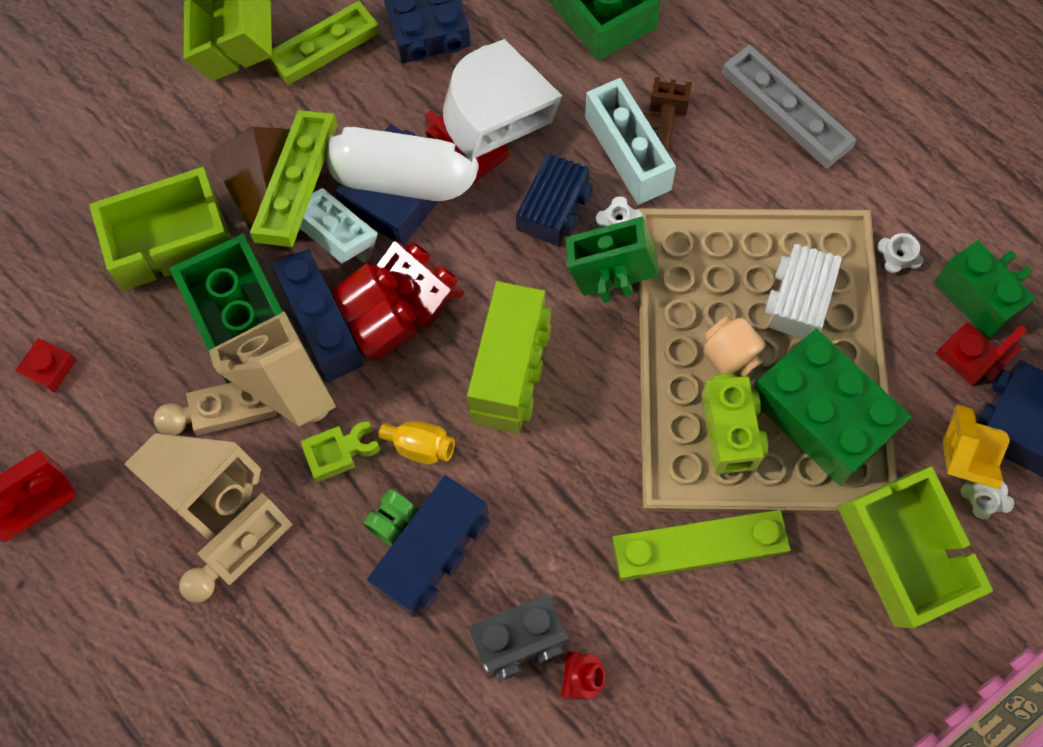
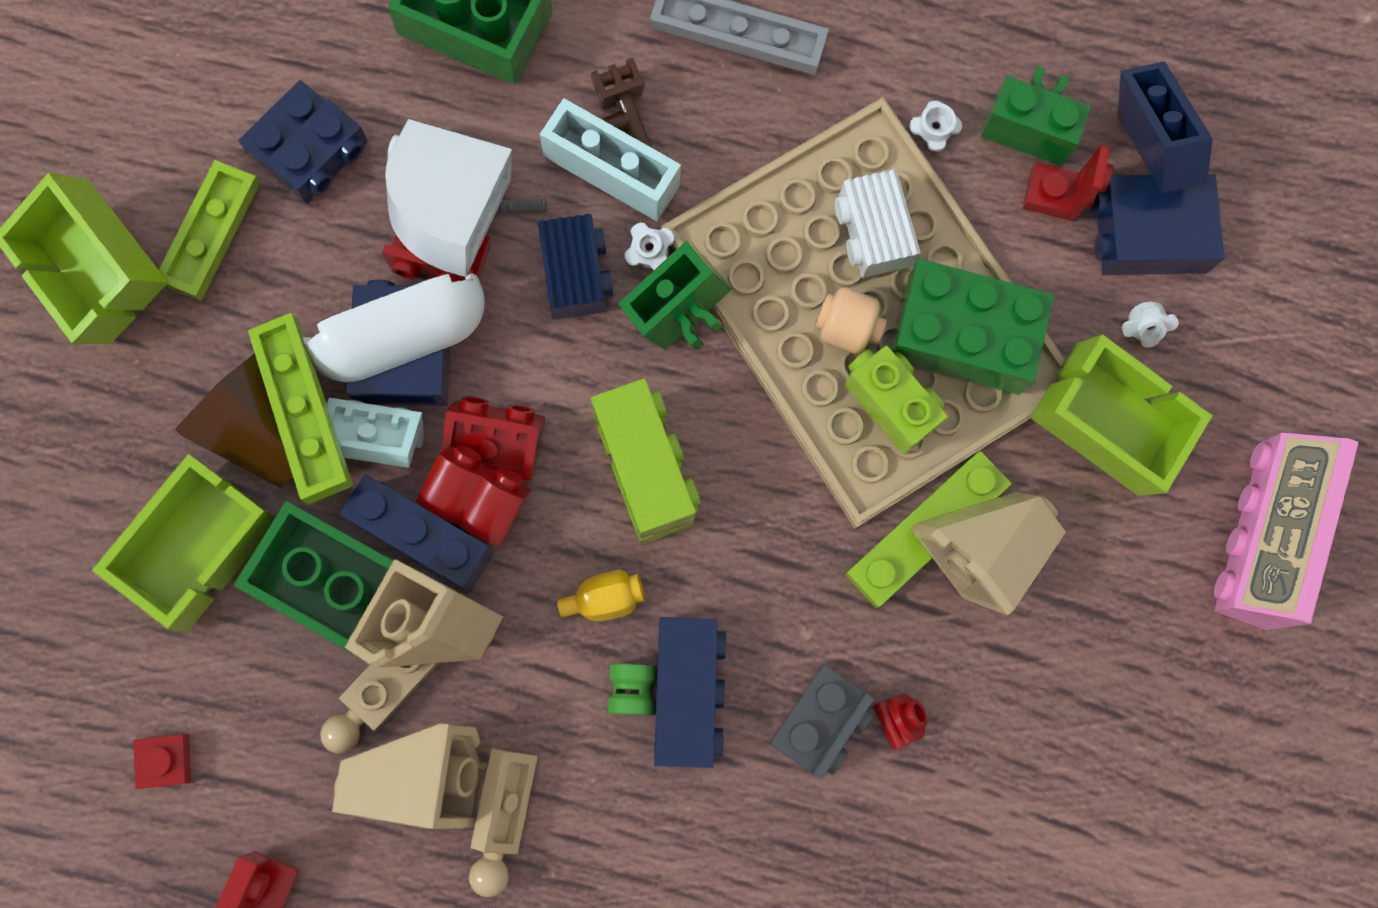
camera: 45 degrees left, 10 degrees up
(333, 452) = (527, 661): lime plate -> none
(548, 144) = (520, 204): none -> light grey leg
(741, 584) = (993, 547): none -> tan slope
(974, 449) = (1117, 290): yellow panel -> none

